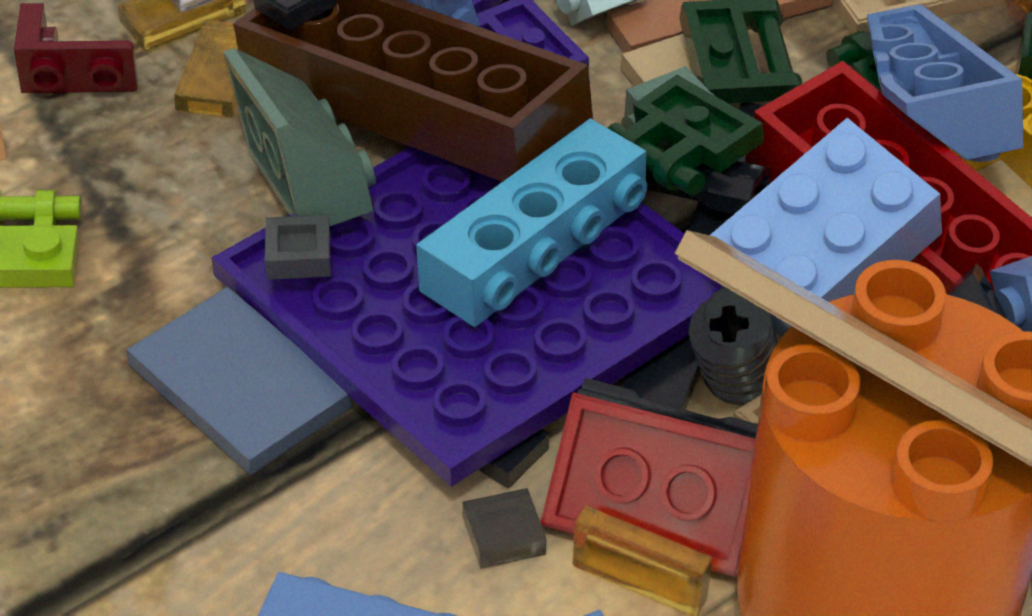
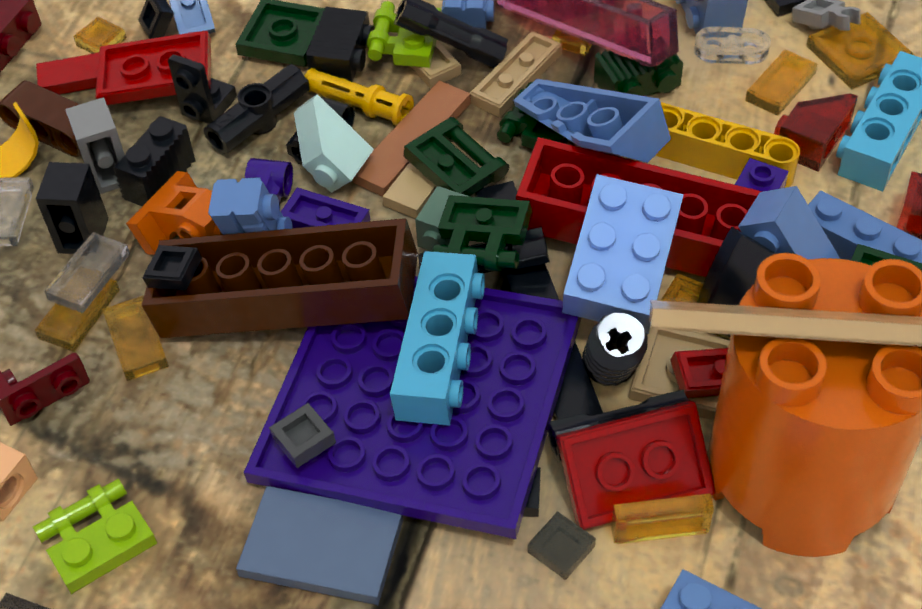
camera: 30 degrees left, 5 degrees up
(298, 142) = (247, 366): sand green slope -> none

